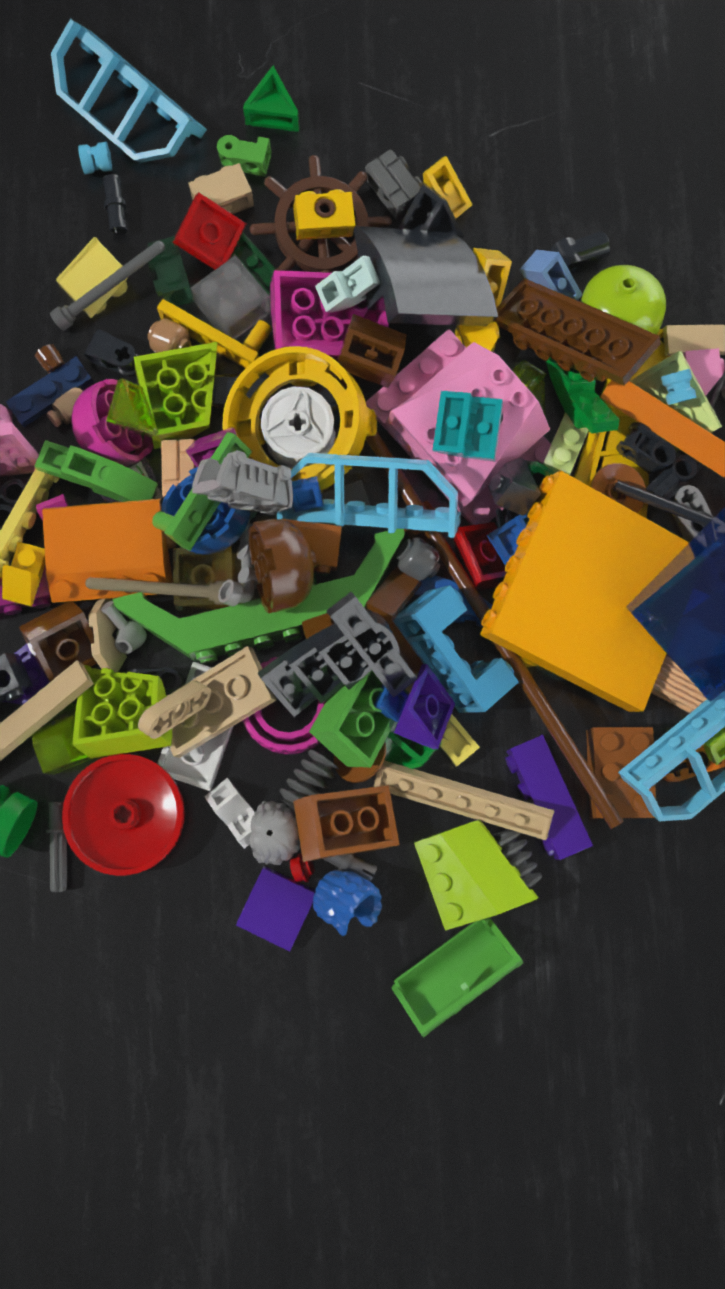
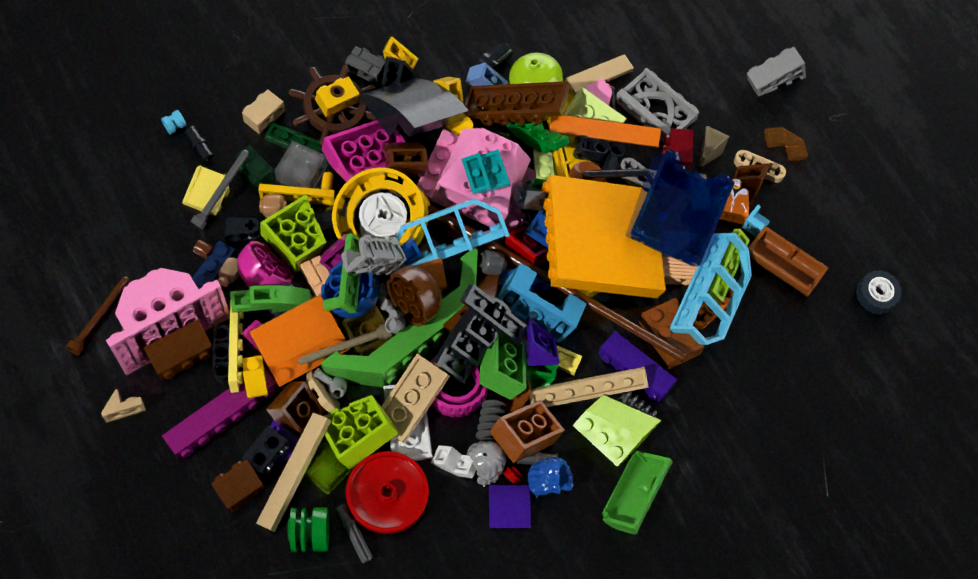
camera: 30 degrees left, 15 degrees down
(130, 76) = (171, 67): medium azure plate -> none
(131, 410) = (277, 253): clear neon green slope -> none
(174, 709) = (393, 405): tan beam -> none
(209, 232) = (269, 134): red tile -> none
(253, 157) = (260, 84): bright green leg -> none
(271, 105) = (270, 50): green slope -> none
(348, 286) = (374, 128): light aqua brick -> none
(391, 706) = (518, 349): blue tile -> none
(678, 386) = (591, 105): medium azure wheel -> none

